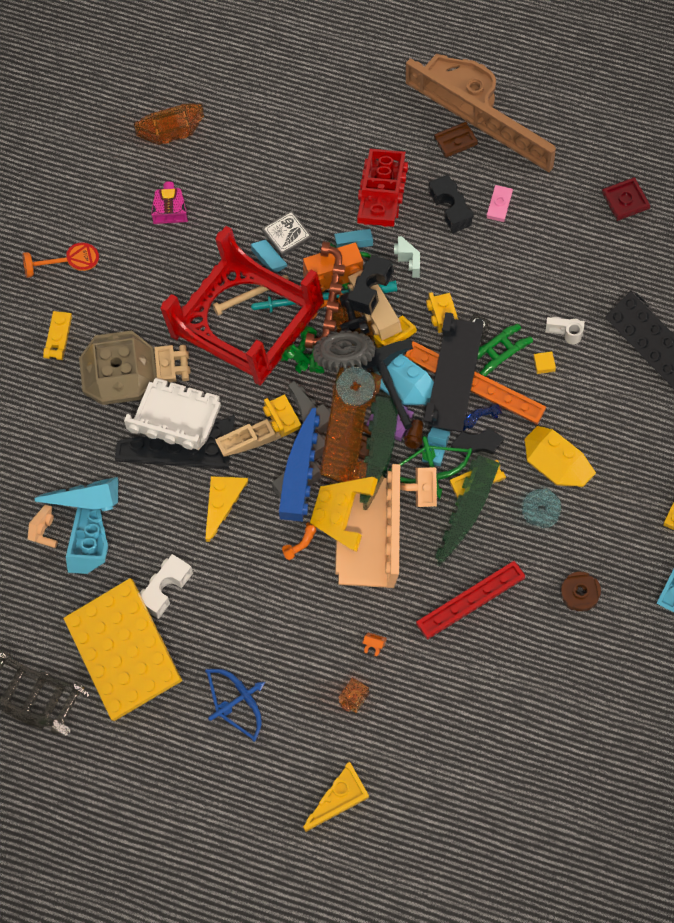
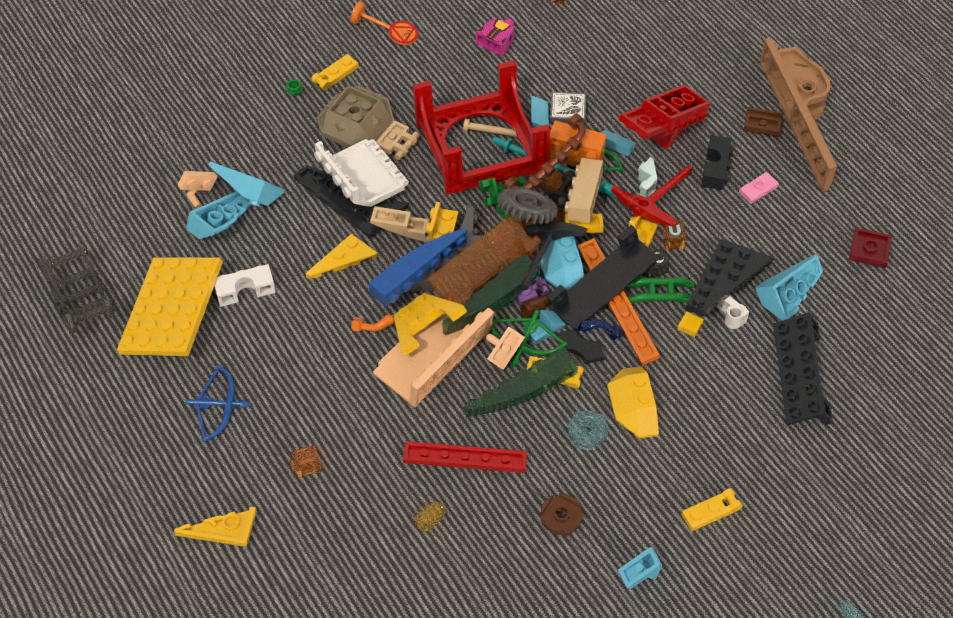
camera: 35 degrees right, 10 degrees down
(35, 371) = (294, 87): none -> green plate
(364, 393) = (513, 242): clear light blue plate -> none
(375, 271) = (602, 164): black arch -> none
(375, 641) = (360, 433): orange tile -> none
(431, 285) = (644, 206): none -> red piece
(470, 293) = (674, 236): none -> clear orange brick
(486, 667) = (429, 516): none -> clear yellow brick
(539, 298) = (725, 272): none -> black wing
(592, 280) = (788, 288): none -> medium azure wedge

